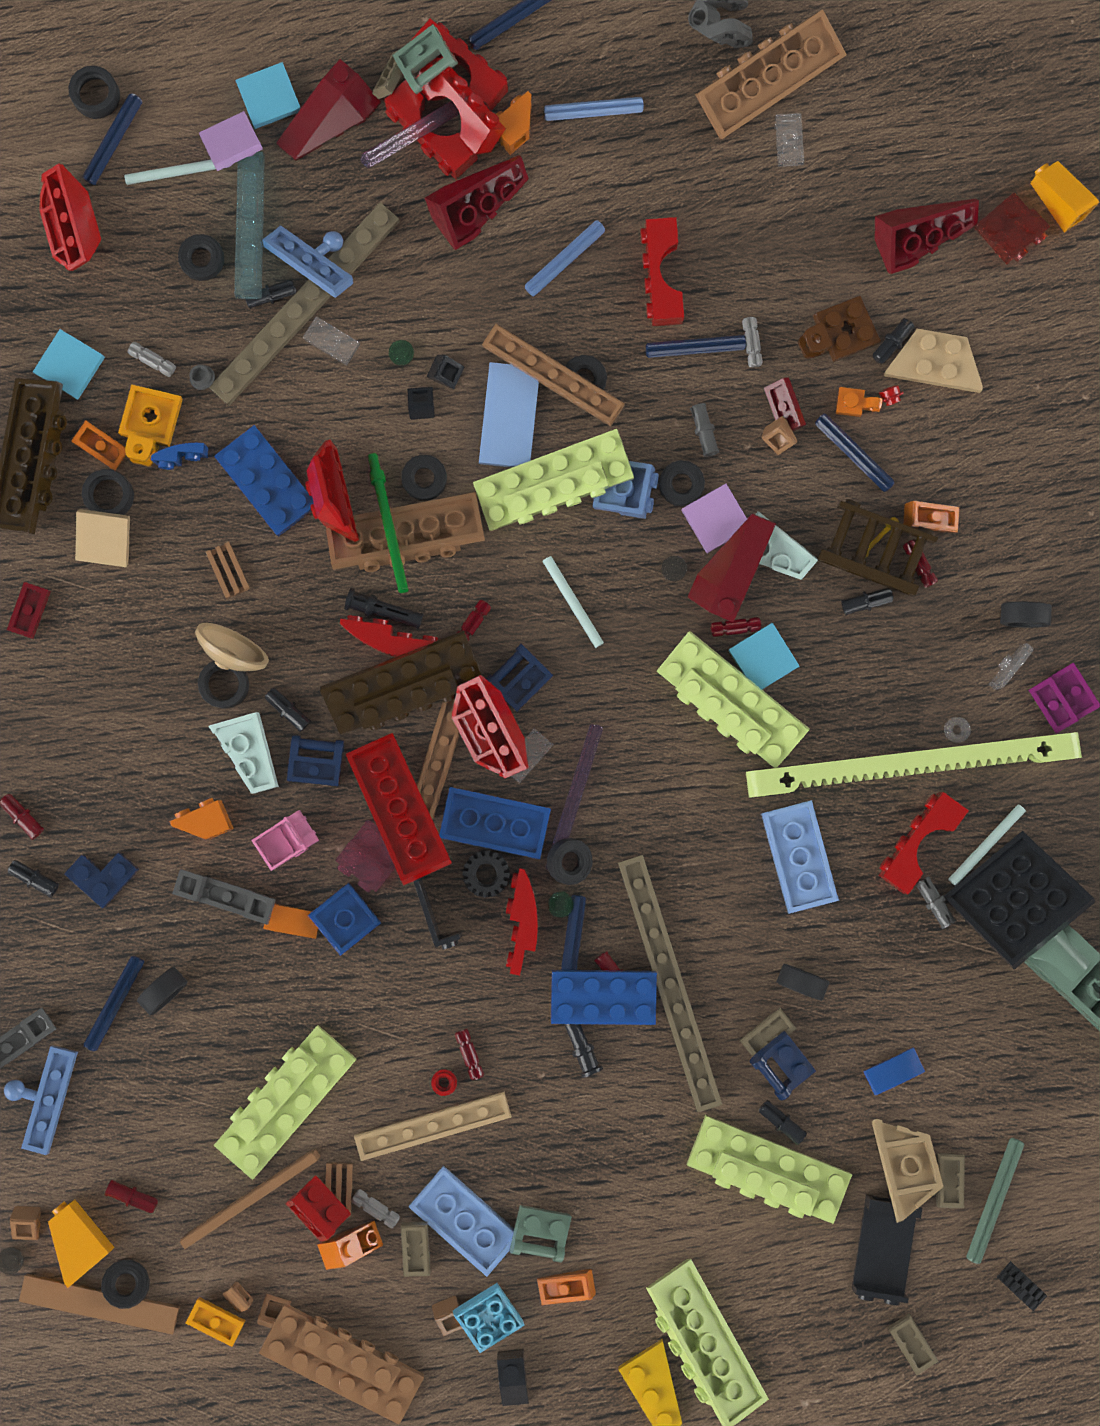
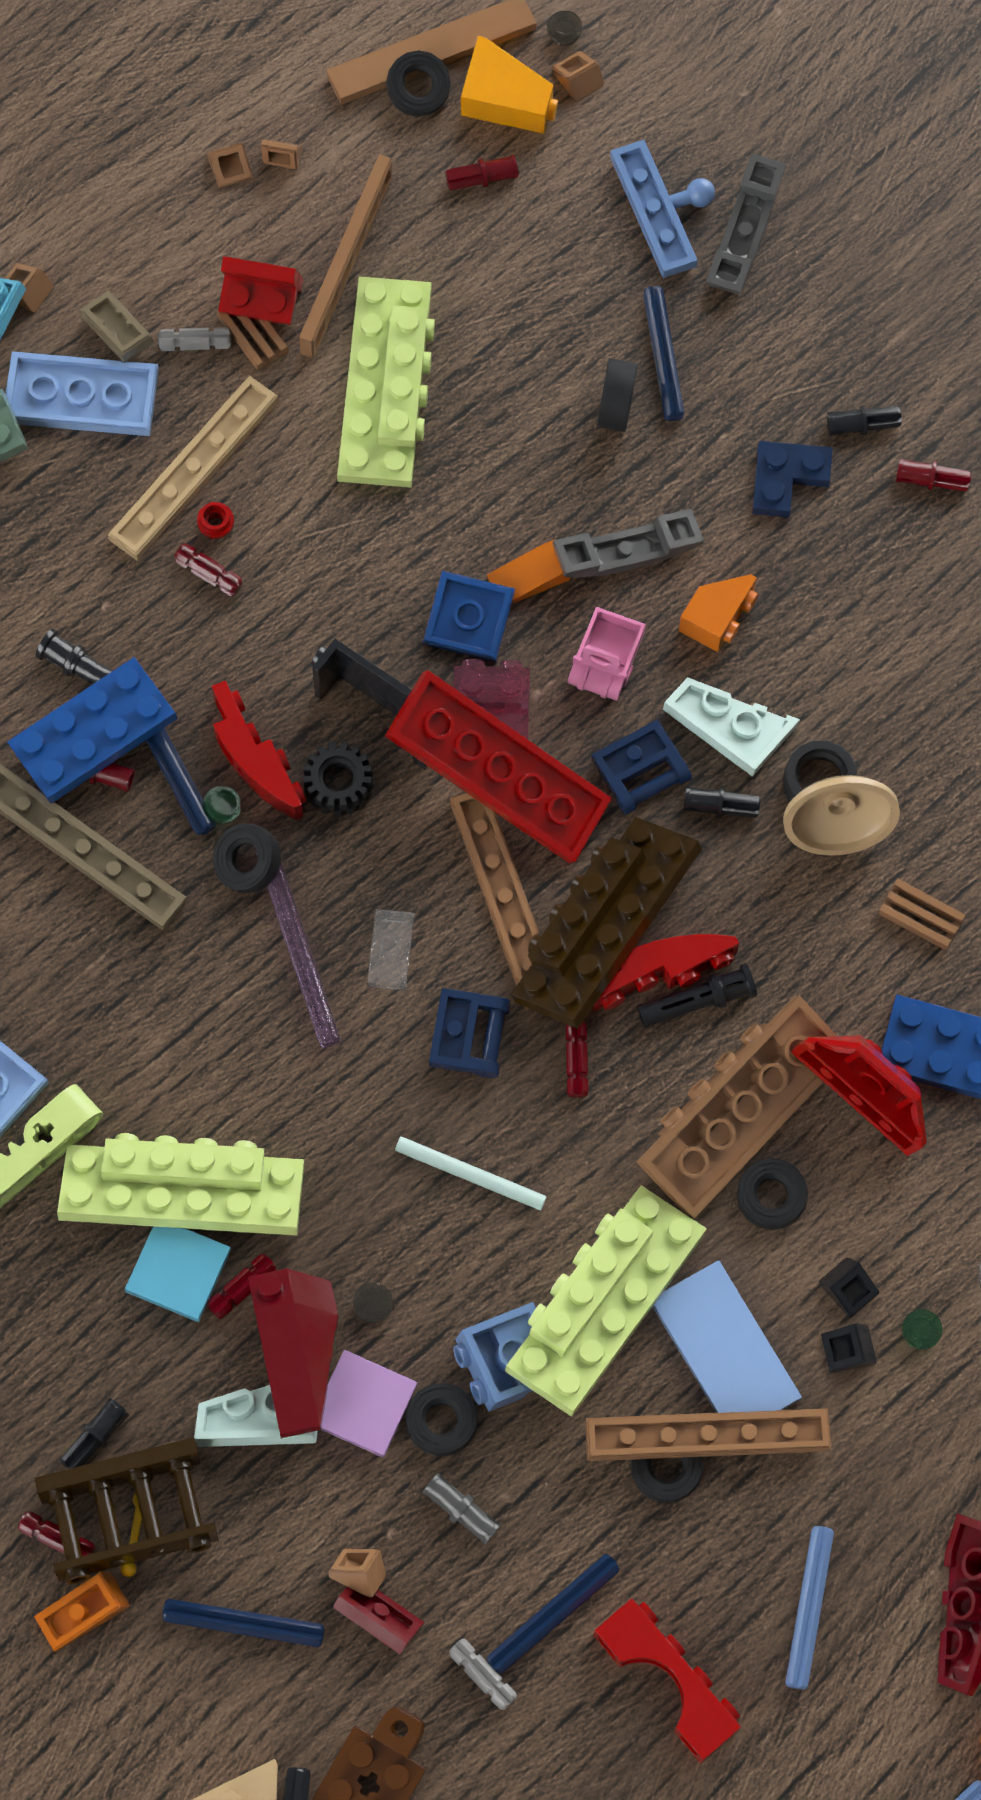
camera: 145 degrees right, 15 degrees down
(215, 1321) = (288, 111): light orange plate -> none
(342, 1363) = (112, 160): medium nougat plate -> none
(350, 1245) = (193, 281): orange slope -> none
(378, 480) = (826, 1148): green bar -> none
(489, 728) = (456, 942): red wedge -> none
(494, 823) = (371, 843): blue plate -> none
(852, 402) = (292, 1689): orange plate -> none
(891, 395) = (248, 1734): red plate -> none

